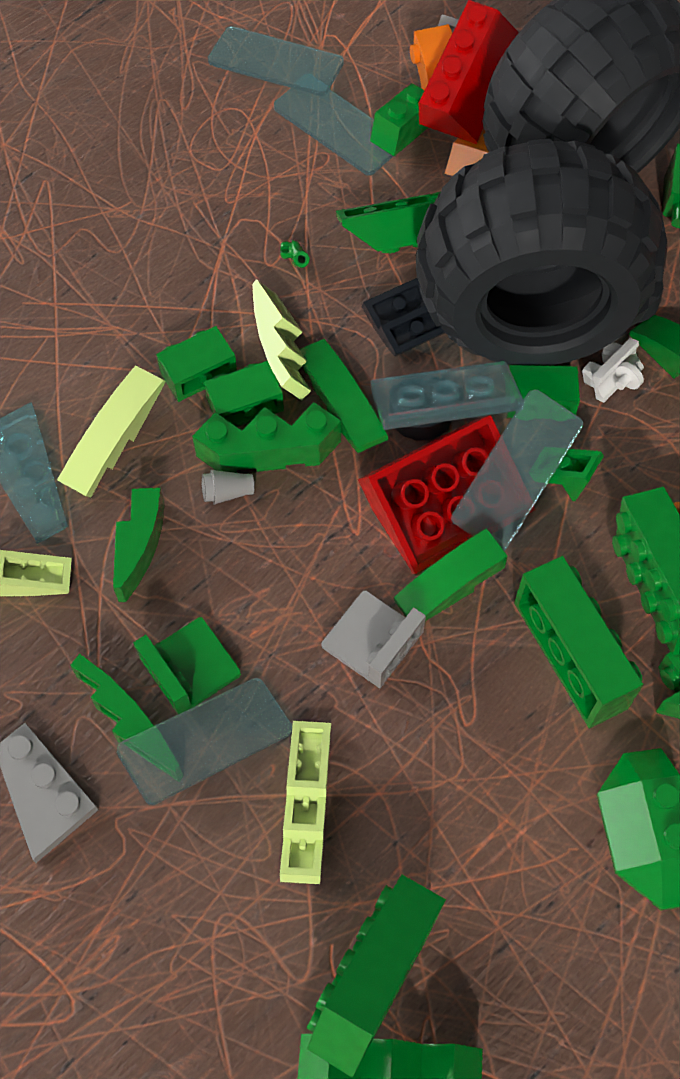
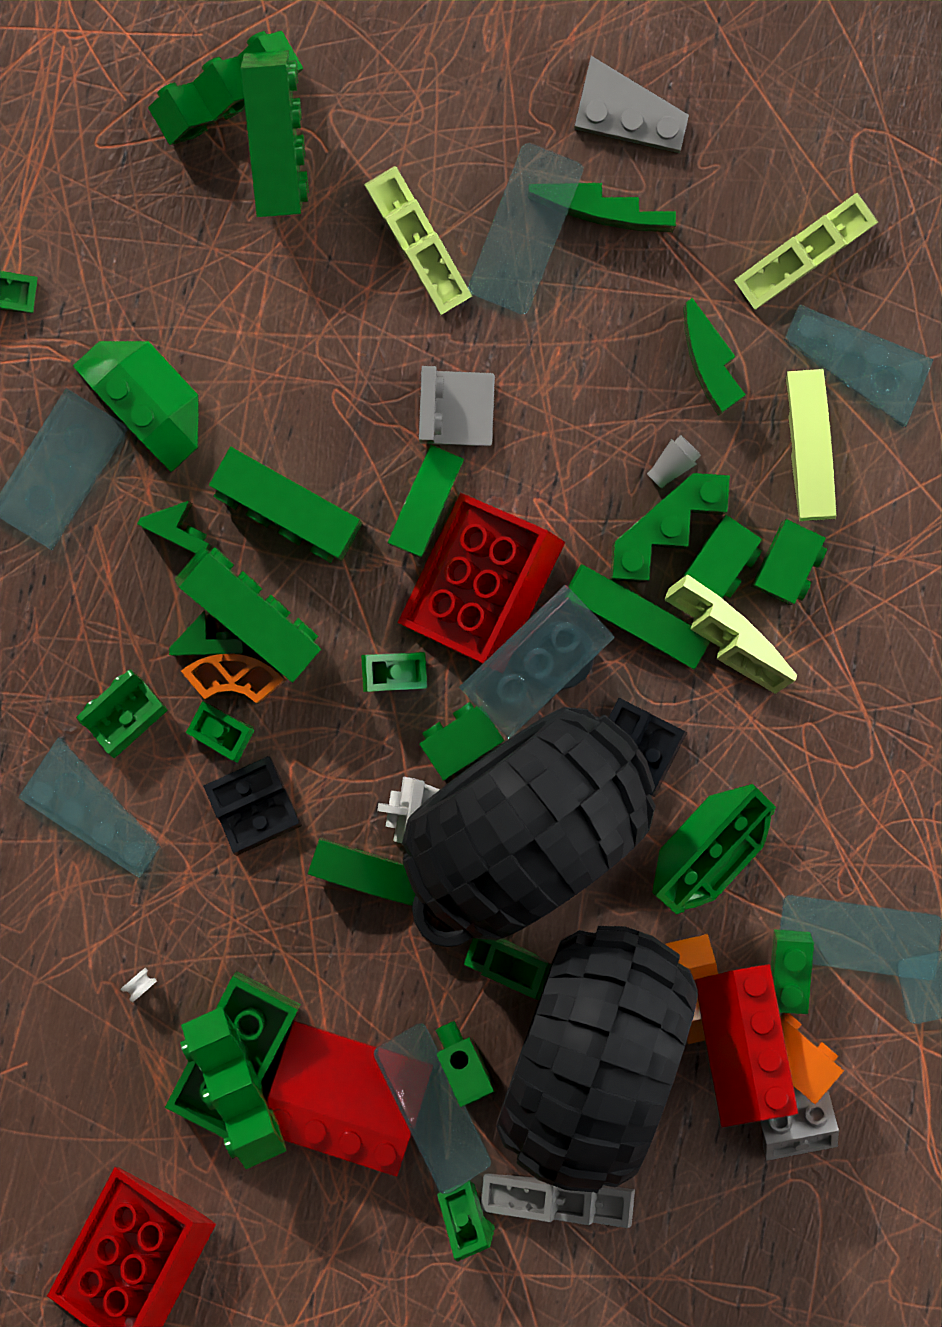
camera: 145 degrees right, 25 degrees up
(188, 664) = (587, 282): green bracket -> none
(294, 251) = (779, 743): green arm -> none
(518, 468) = (430, 633): clear light blue piece -> none

